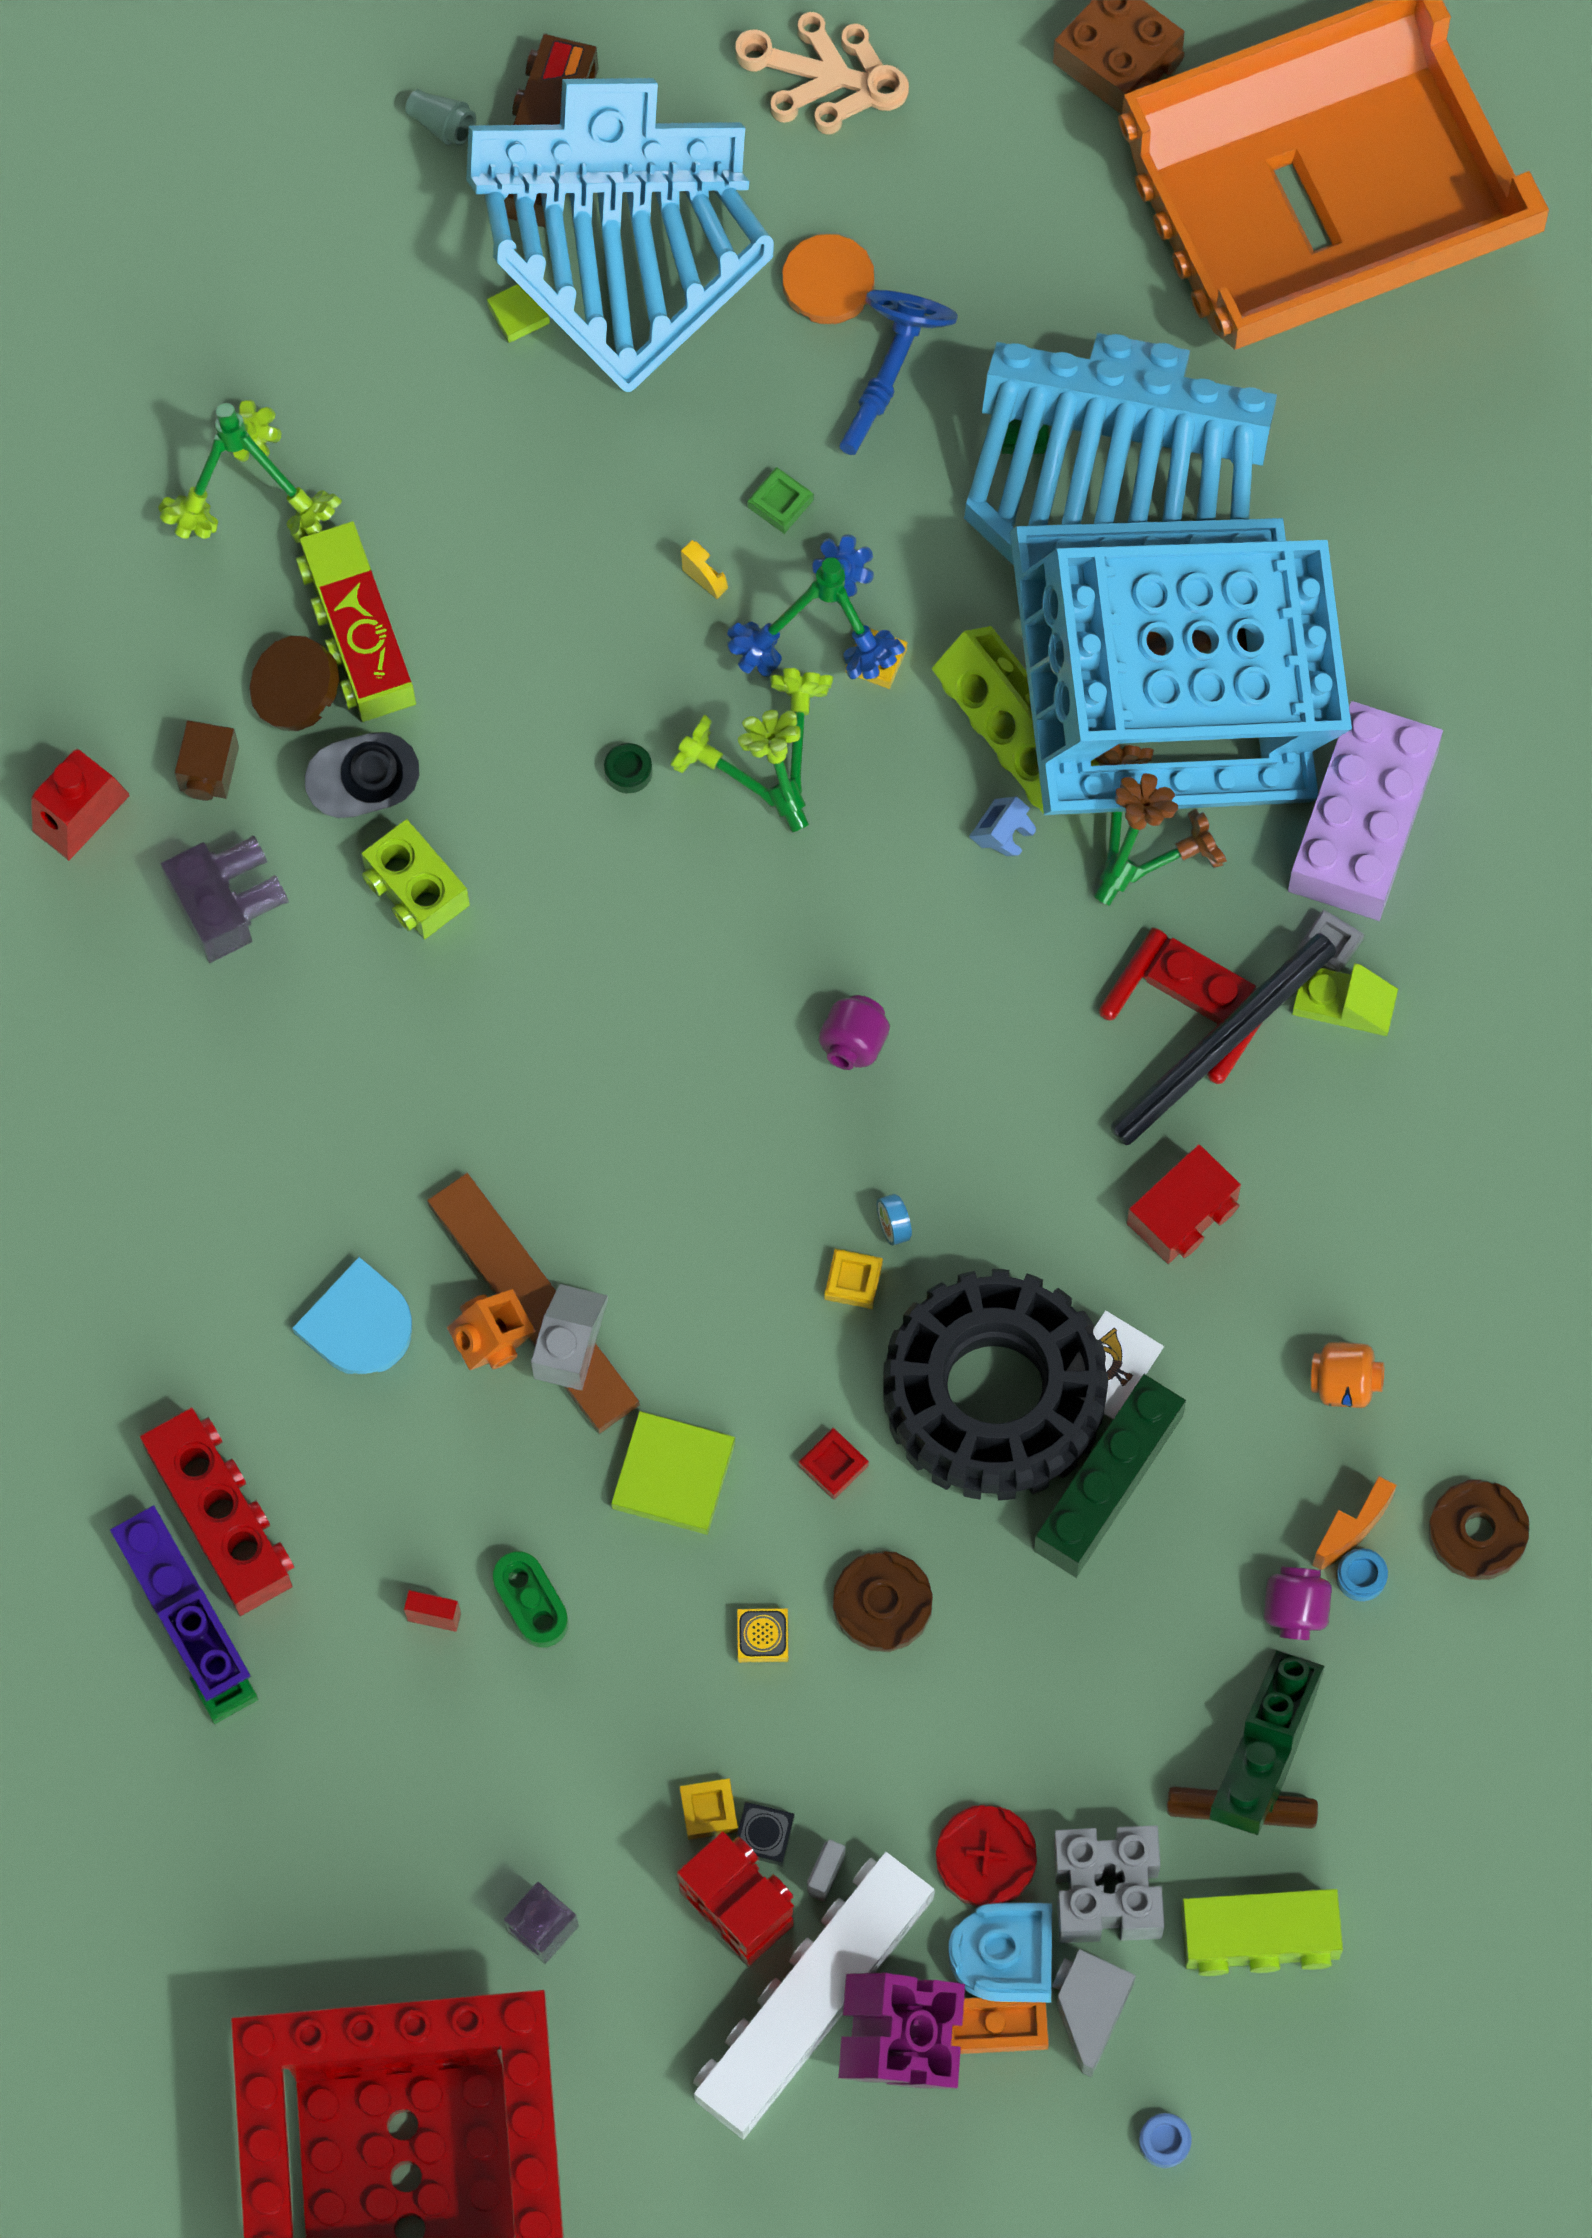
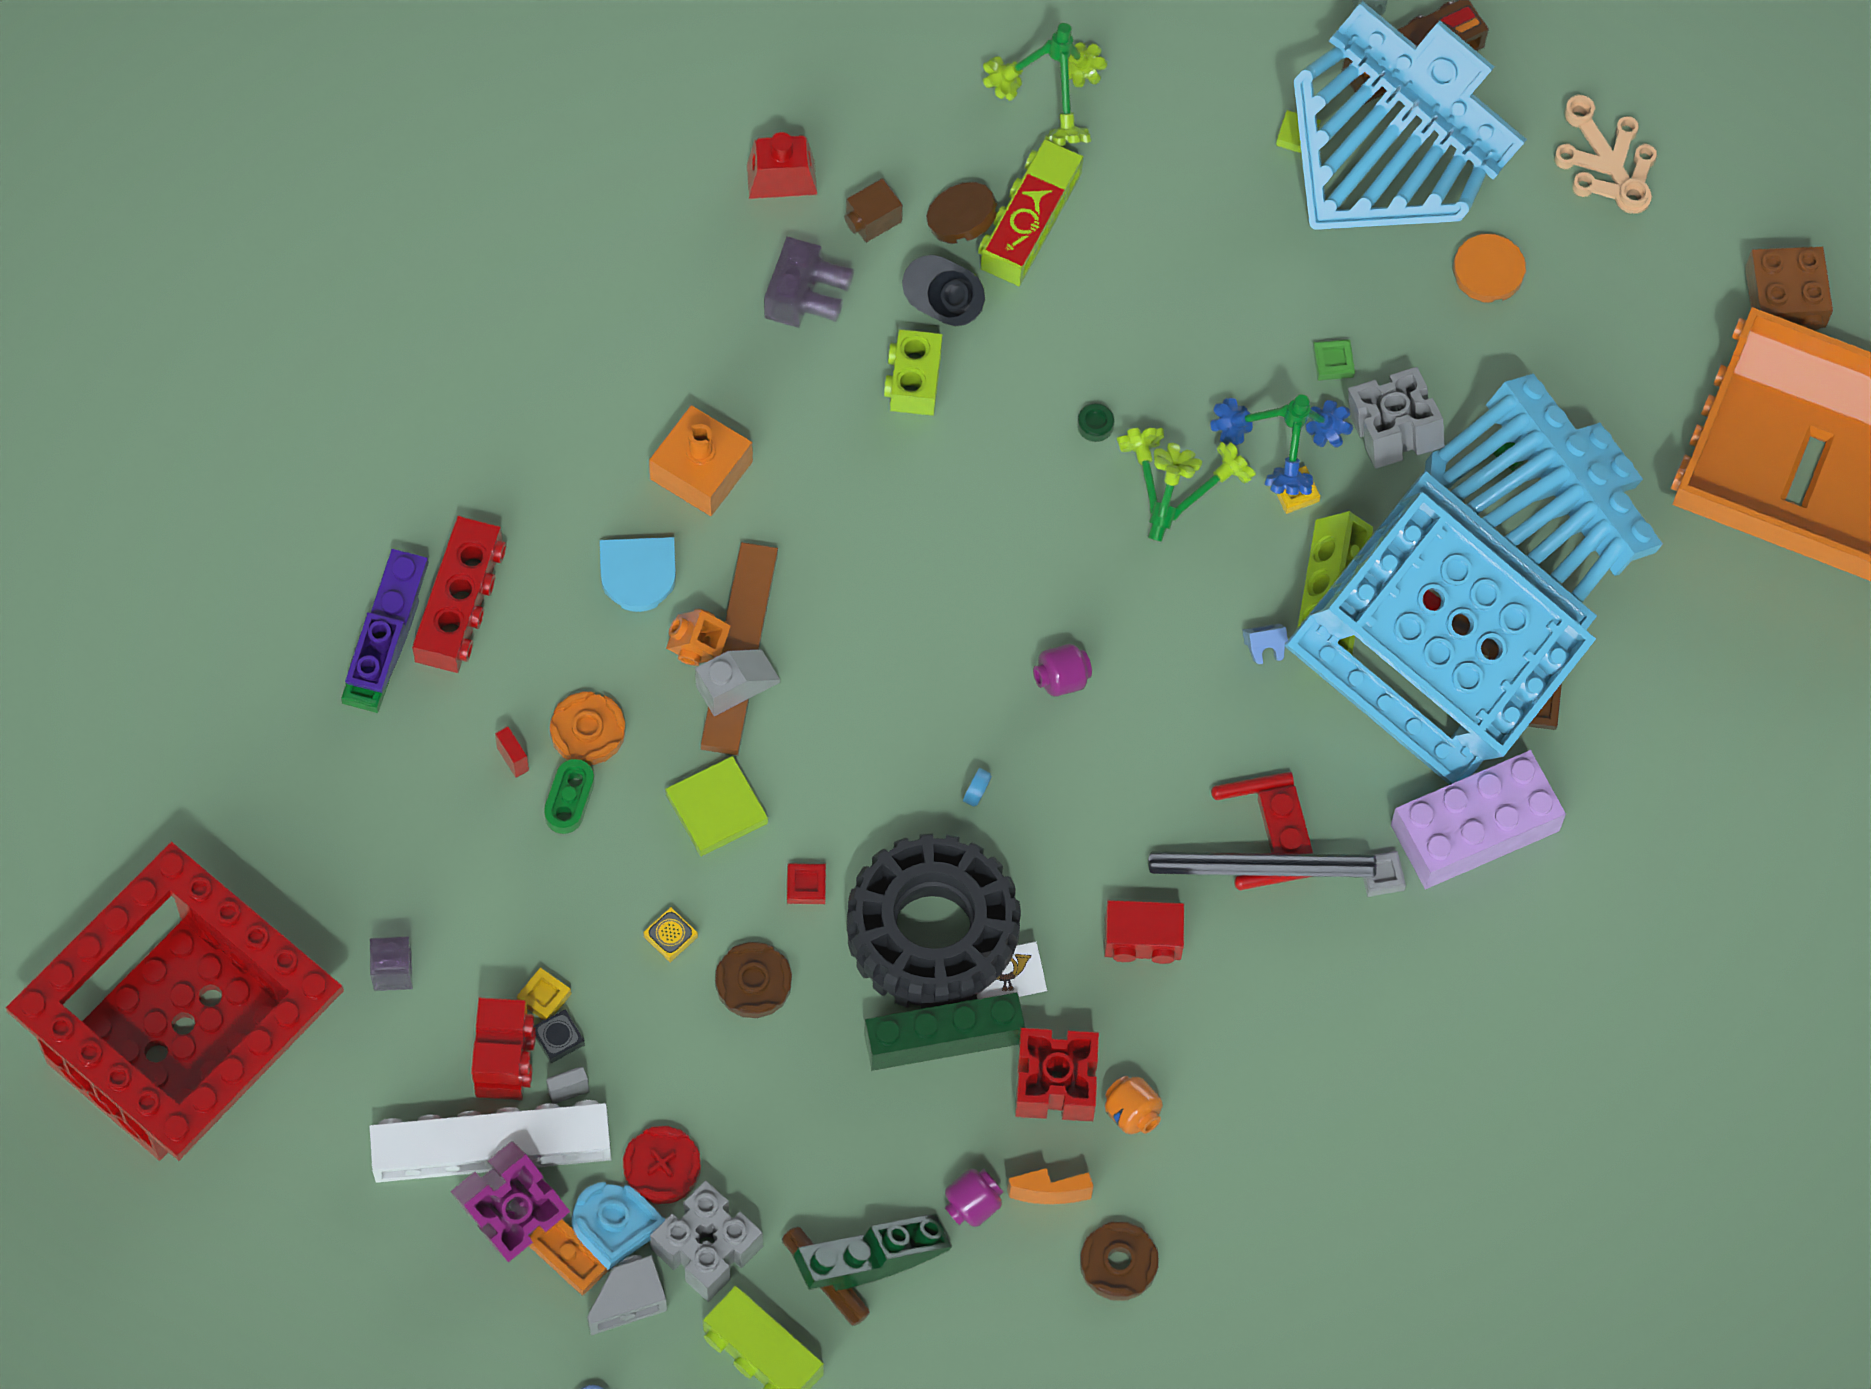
camera: 40 degrees right, 5 degrees down
(307, 1158) = (701, 460): none -> orange brick
(474, 1518) = (587, 727): none -> orange tile
(694, 565) = (1248, 355): yellow tile -> none
(853, 1278) = (923, 799): yellow tile -> none
(904, 501) = (1396, 417): none -> light grey brick
(908, 318) = (1508, 325): blue dish -> none
(1143, 806) = (1339, 688): dark orange plant -> none
(1253, 1384) = (1042, 1056): none -> red brick
(1348, 1000) = (1358, 911): lime slope -> none
(1362, 1574) = (1027, 1220): dark azure tile -> none

